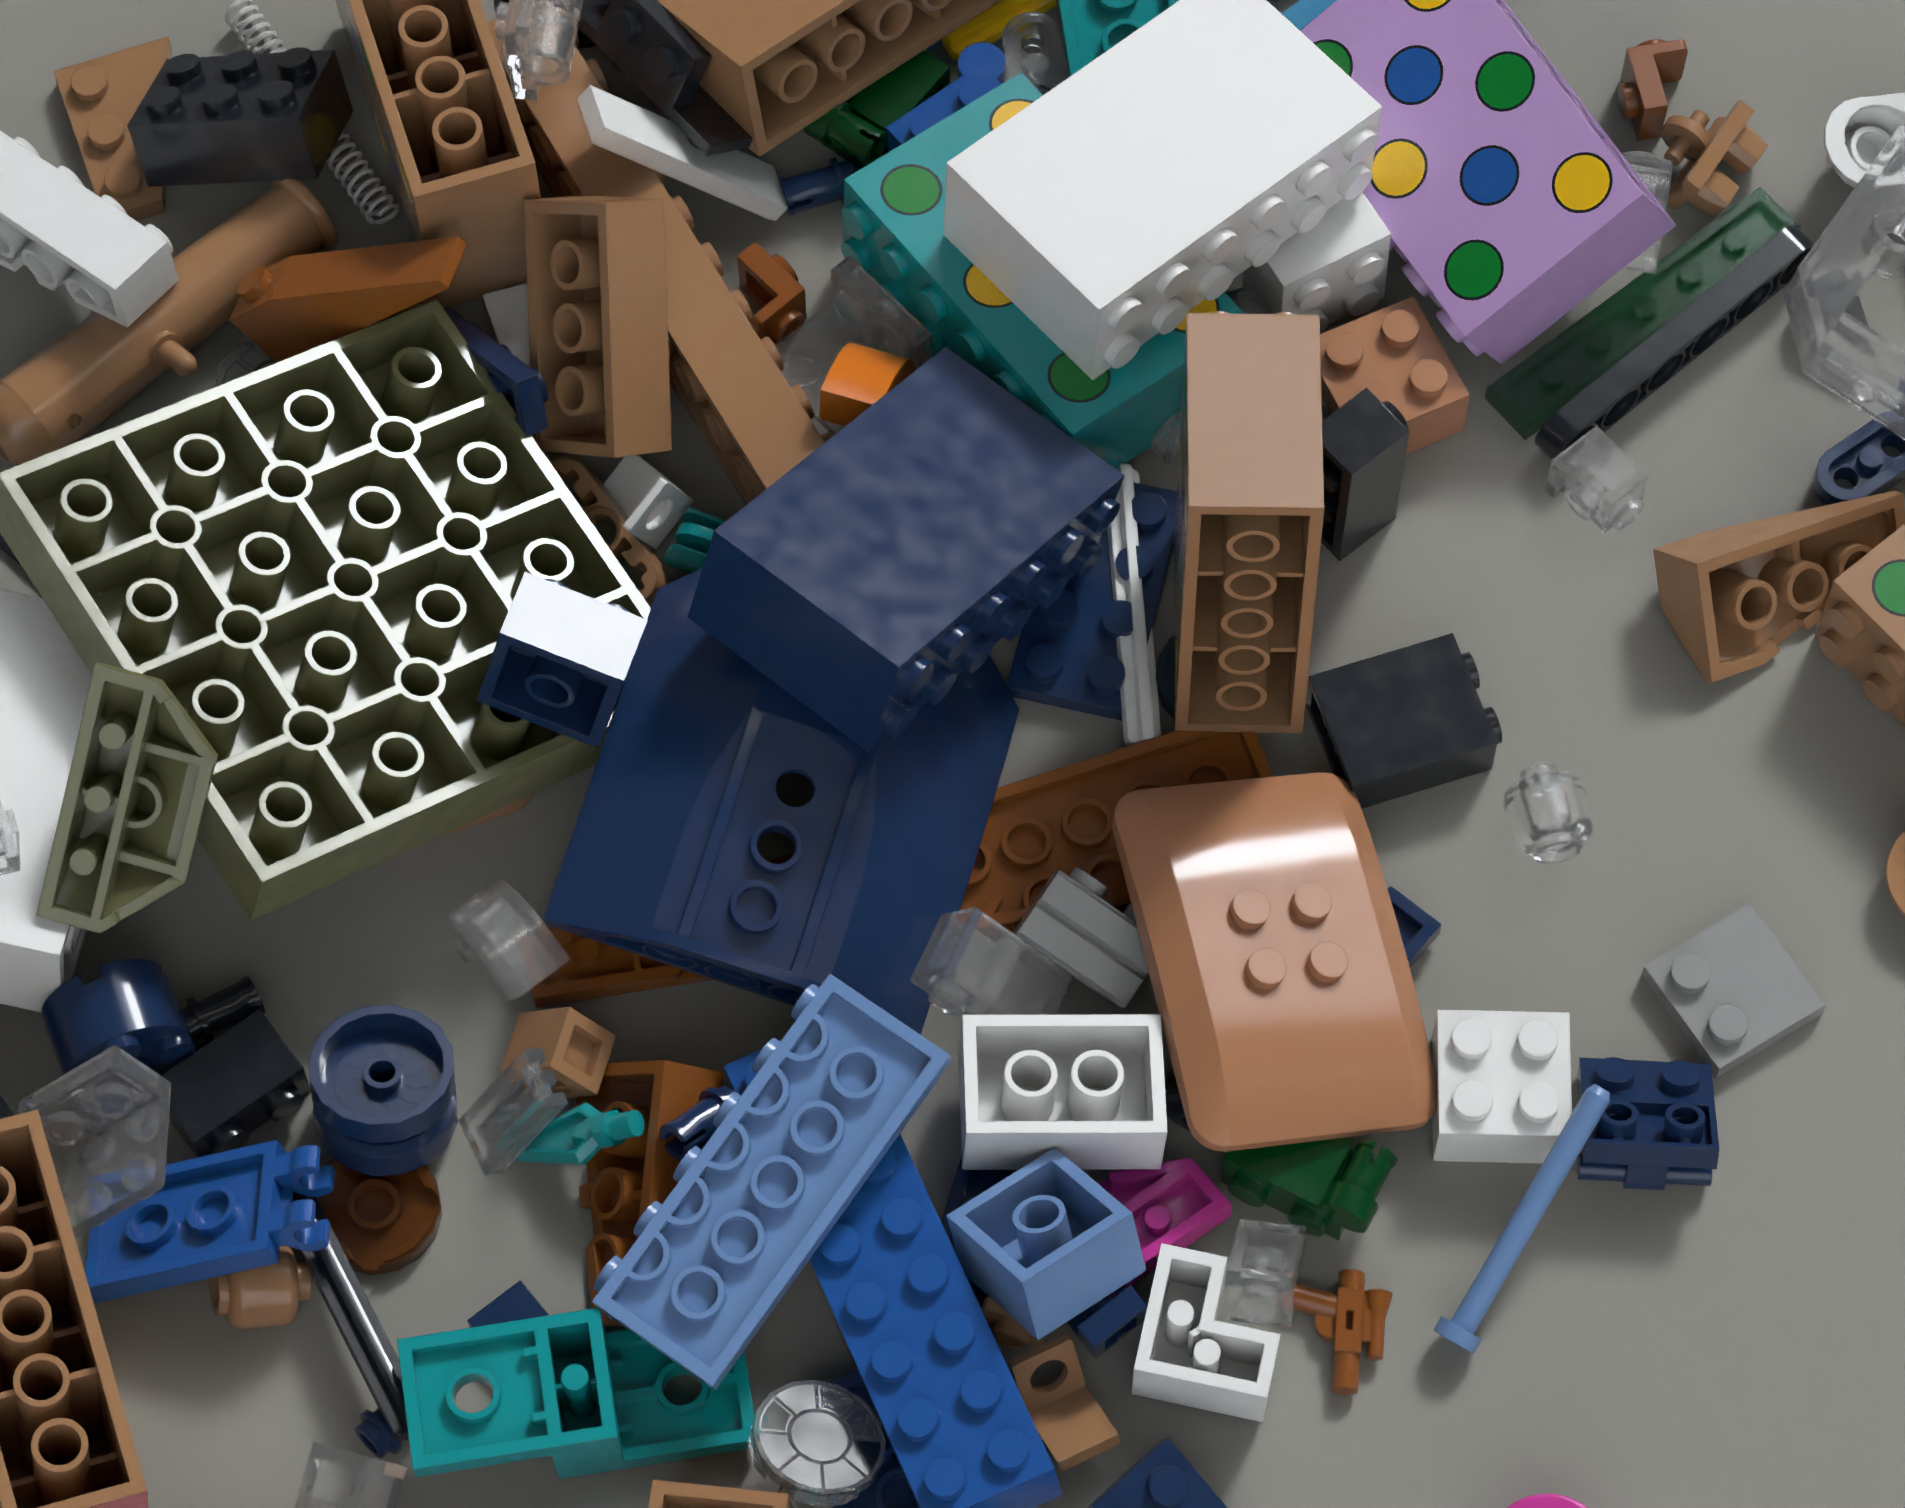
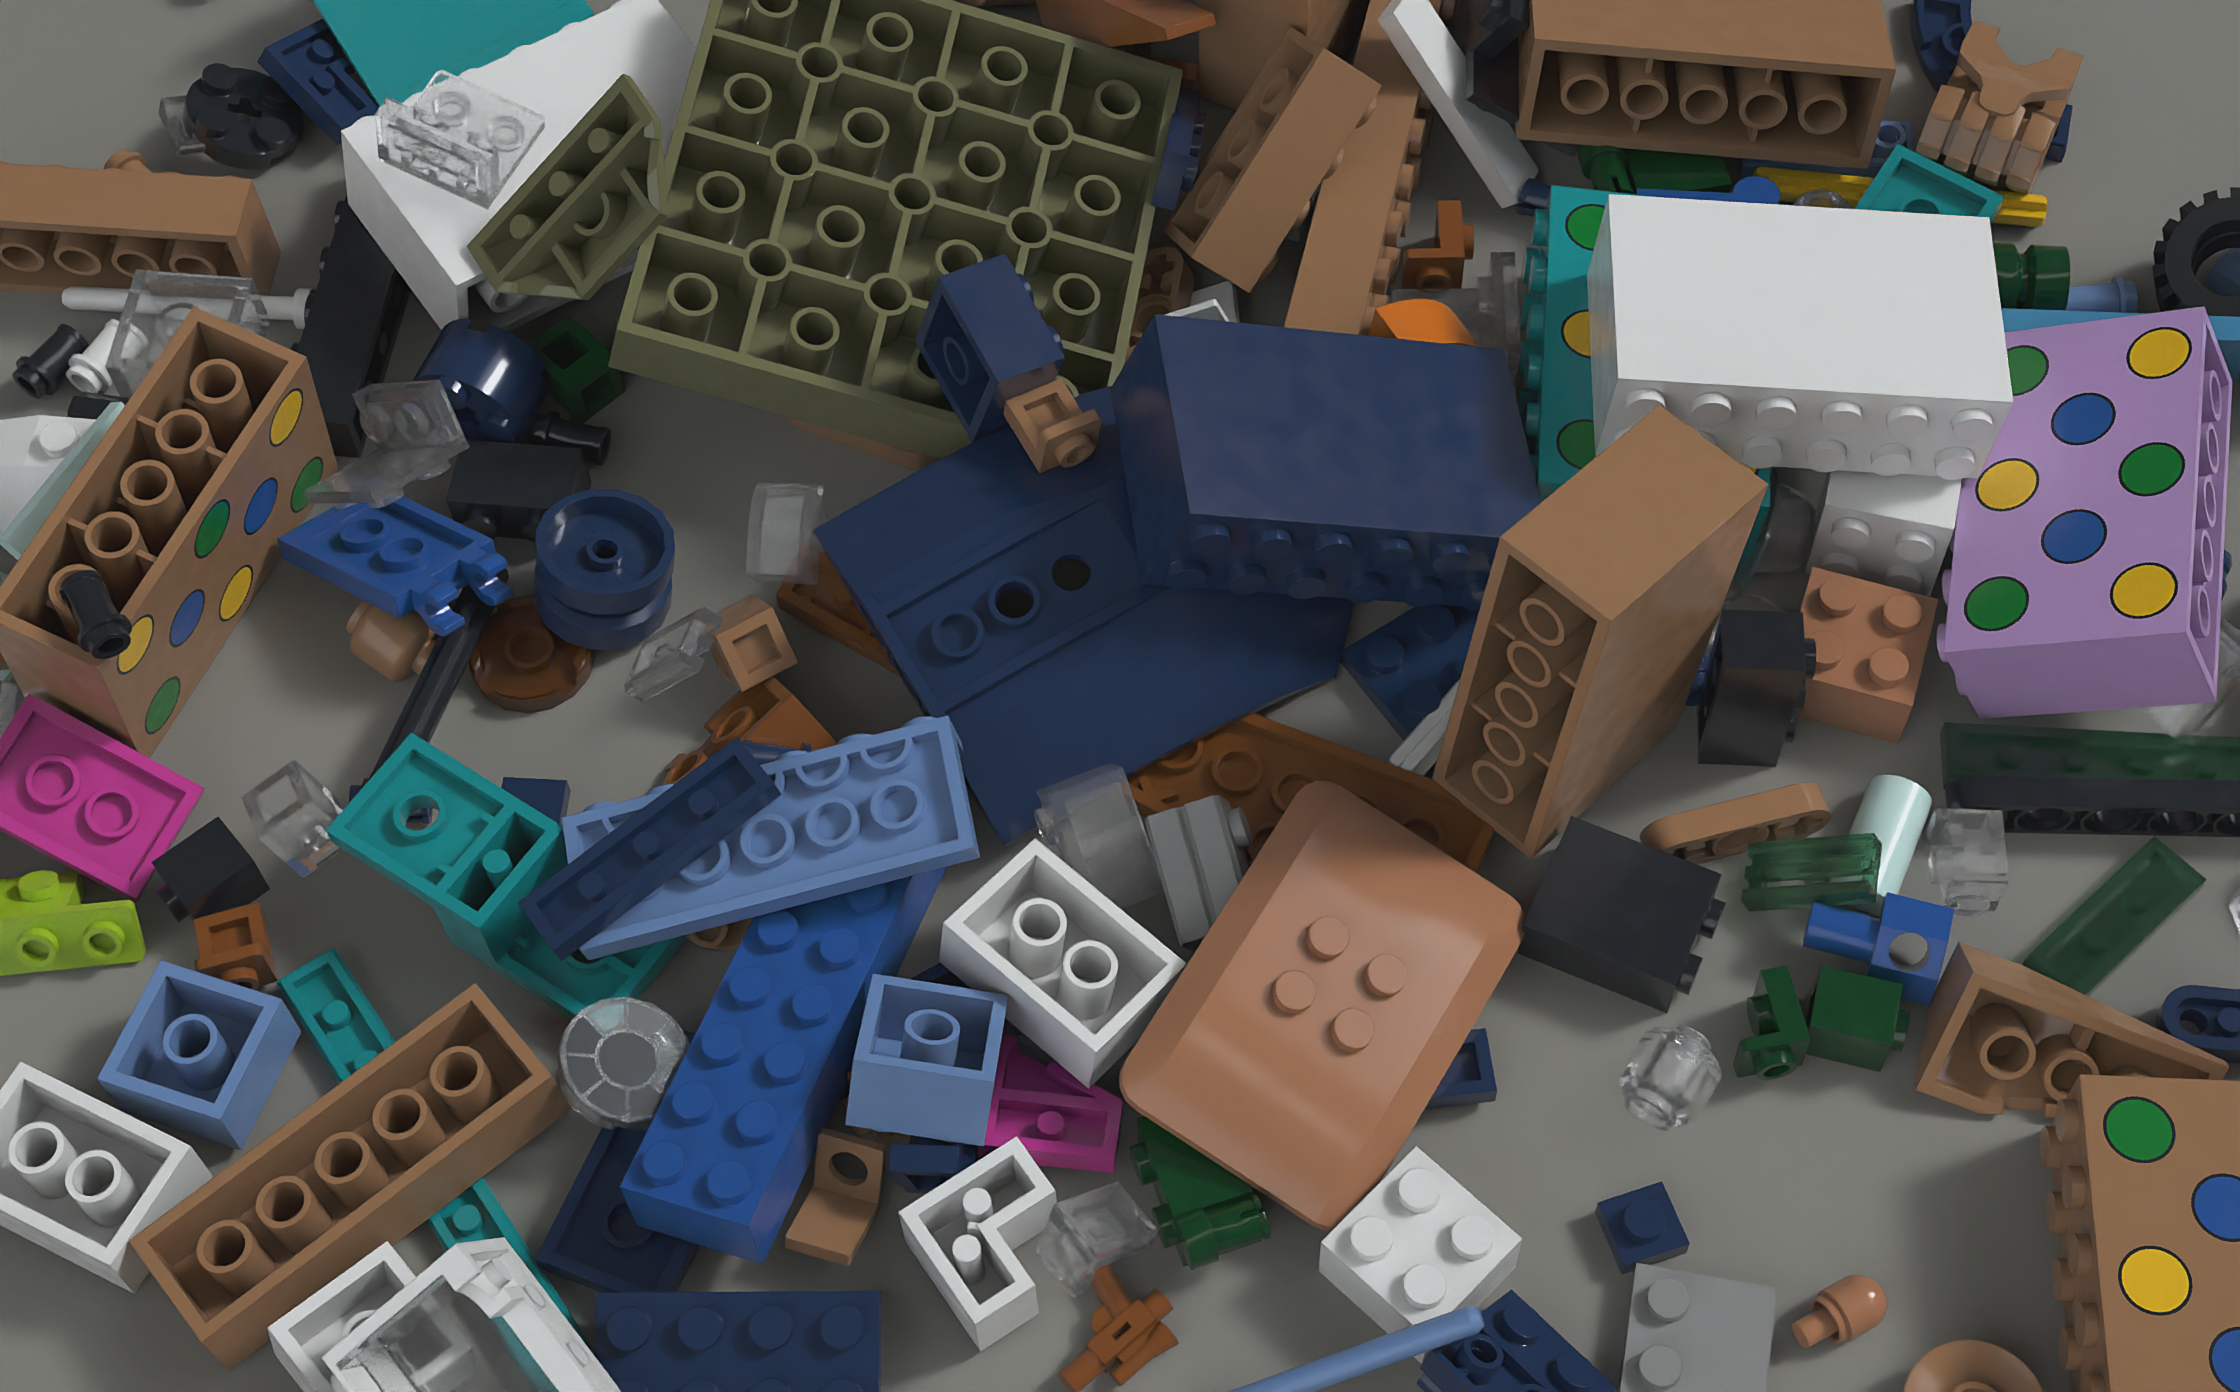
camera: 45 degrees right, 5 degrees down
(111, 1448) = (100, 626): none -> black pin
(173, 932) = (577, 369): none -> dark green brick
(580, 1134) = (700, 709): teal piece -> none
(671, 683) = (1053, 426): none -> medium nougat bracket
(701, 1263) = (649, 848): none -> dark blue plate
(1419, 585) = (1731, 825): none -> medium nougat beam
(1489, 563) = (1812, 862): none -> clear green tile
(1525, 520) = (1896, 814): none -> light aqua brick
(1581, 709) = (1777, 1026): none -> dark green bracket
(1592, 593) = (1869, 939): none -> blue piece
(1621, 938) = (1642, 1227): none -> dark blue plate
(1627, 666) = (1855, 1018): none -> dark green brick
(1729, 444) = (2117, 919): none -> clear green tile
(1805, 882) = (1842, 1311): none -> nougat cylinder

